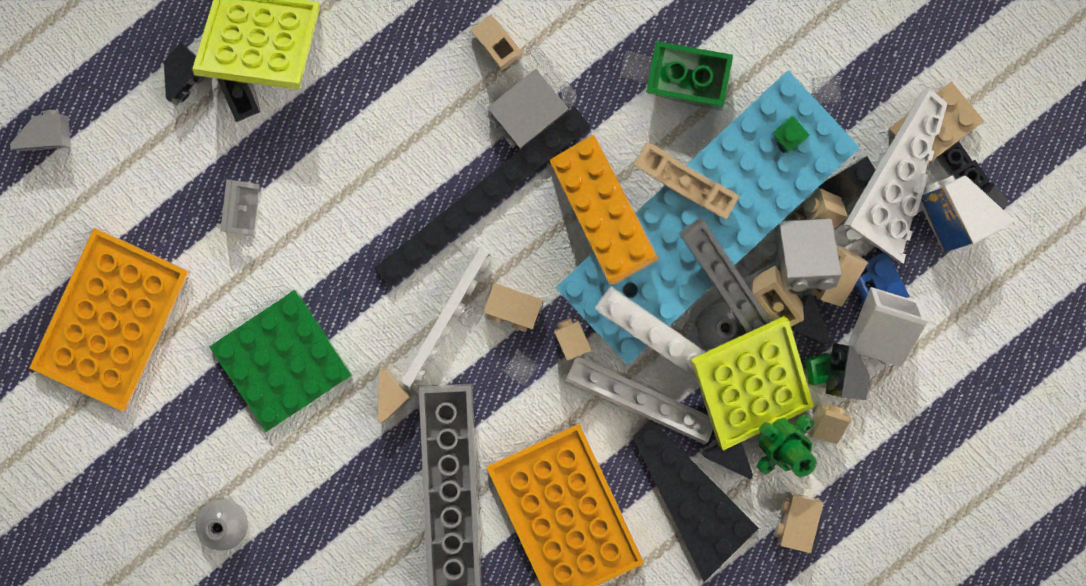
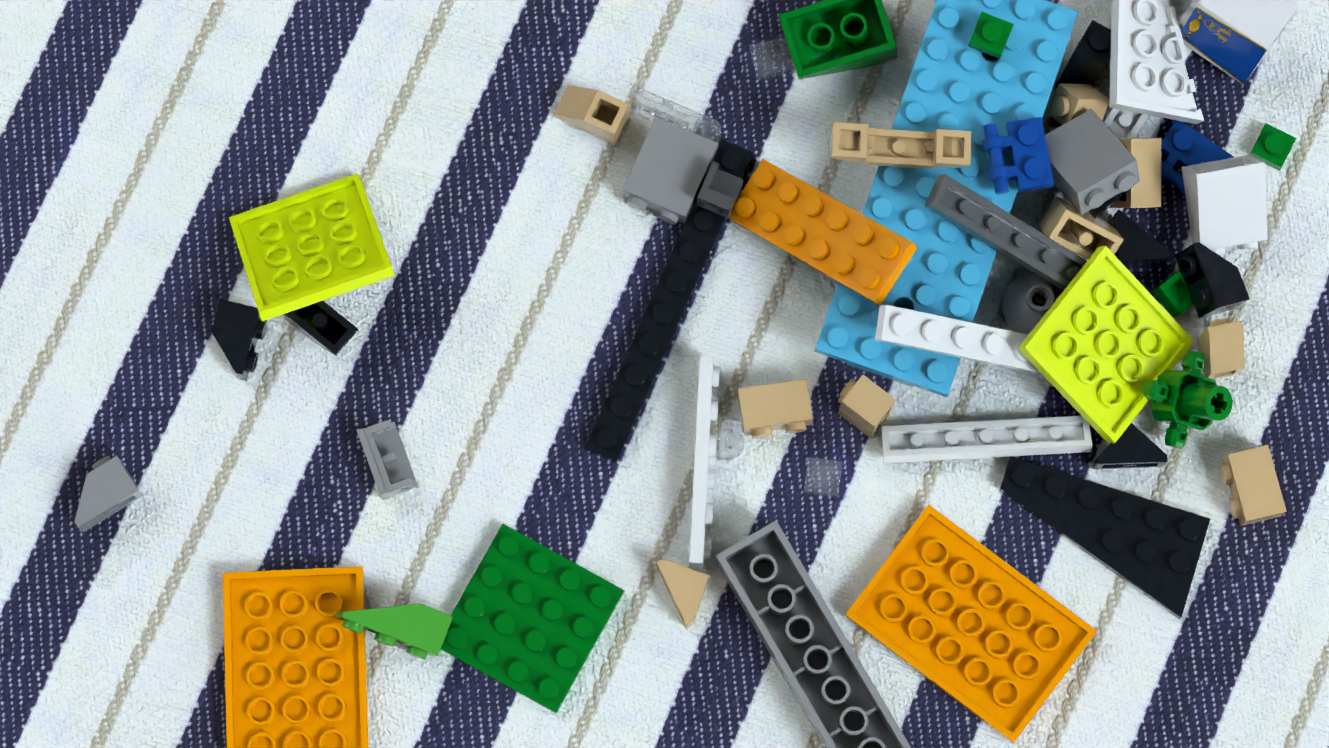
camera: 25 degrees left, 10 degrees down
(196, 325) = (411, 625): none -> bright green slope
(552, 142) = (719, 191): none -> dark grey panel
(770, 232) = (1028, 152): none -> blue plate
(939, 302) = (1272, 146): none -> green plate

